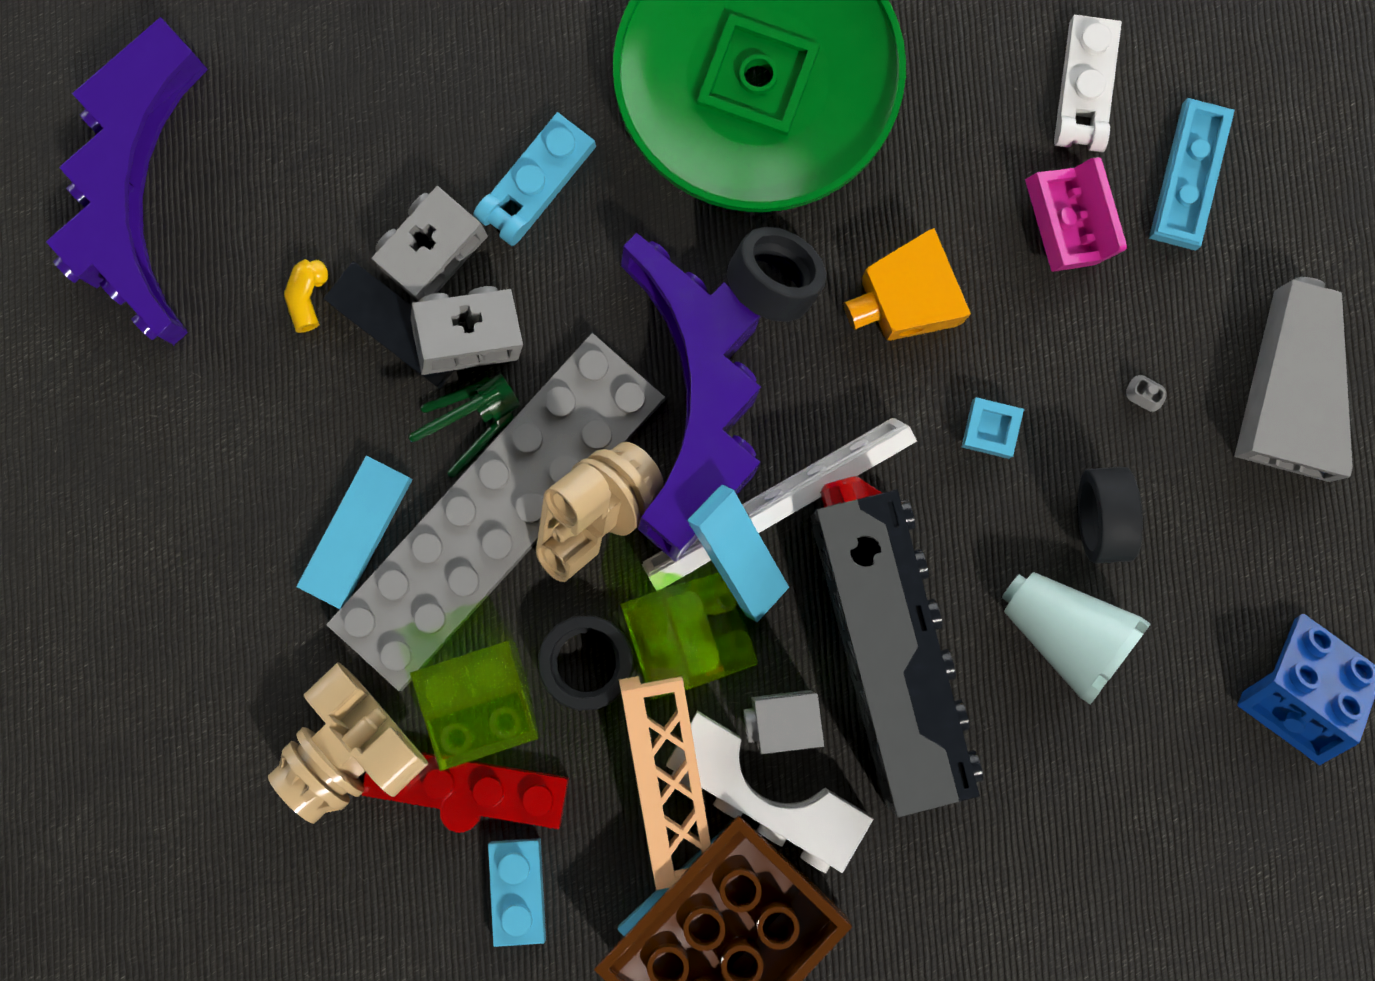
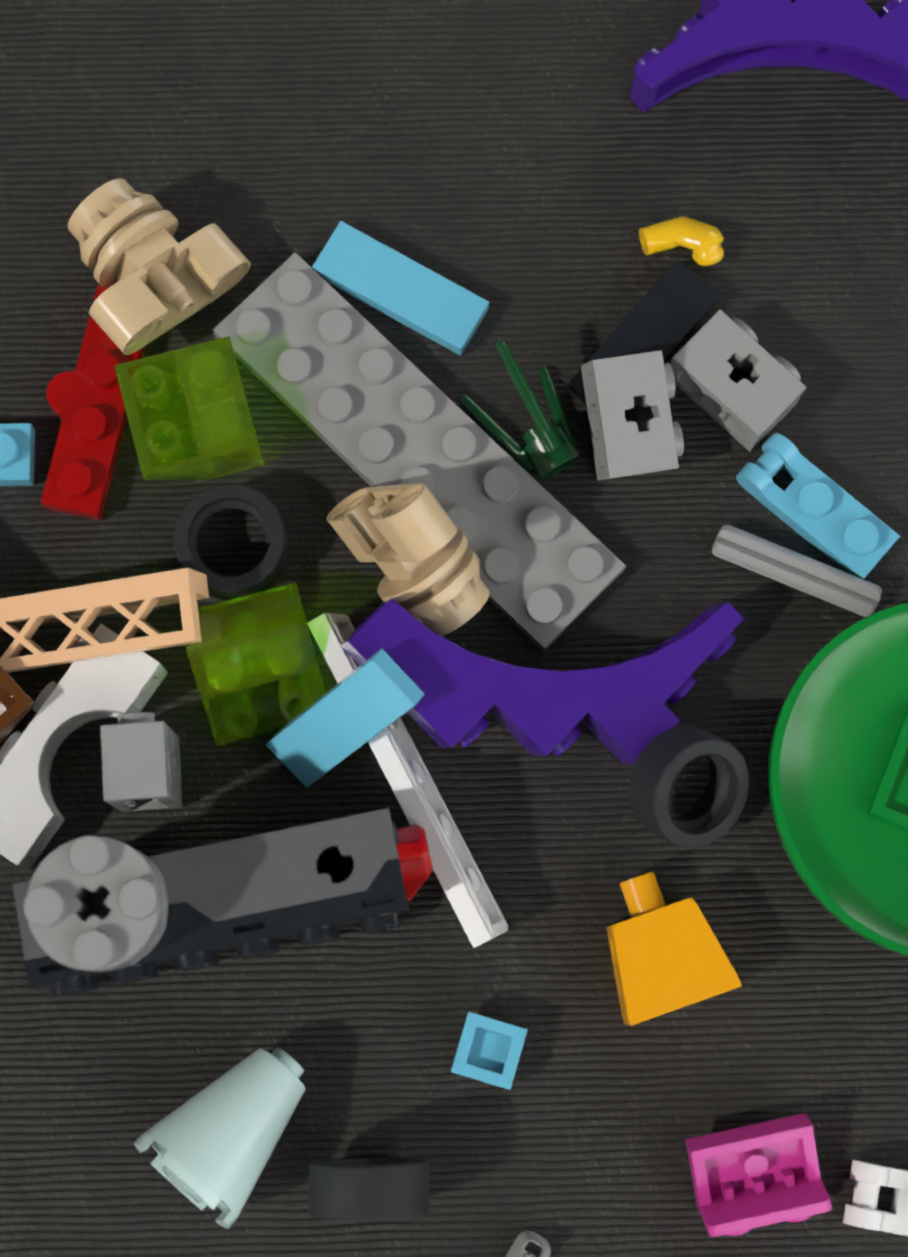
camera: 85 degrees right, 5 degrees down
(589, 195) = (796, 570): none -> light grey axle
(948, 736) = (60, 906): none -> light grey brick

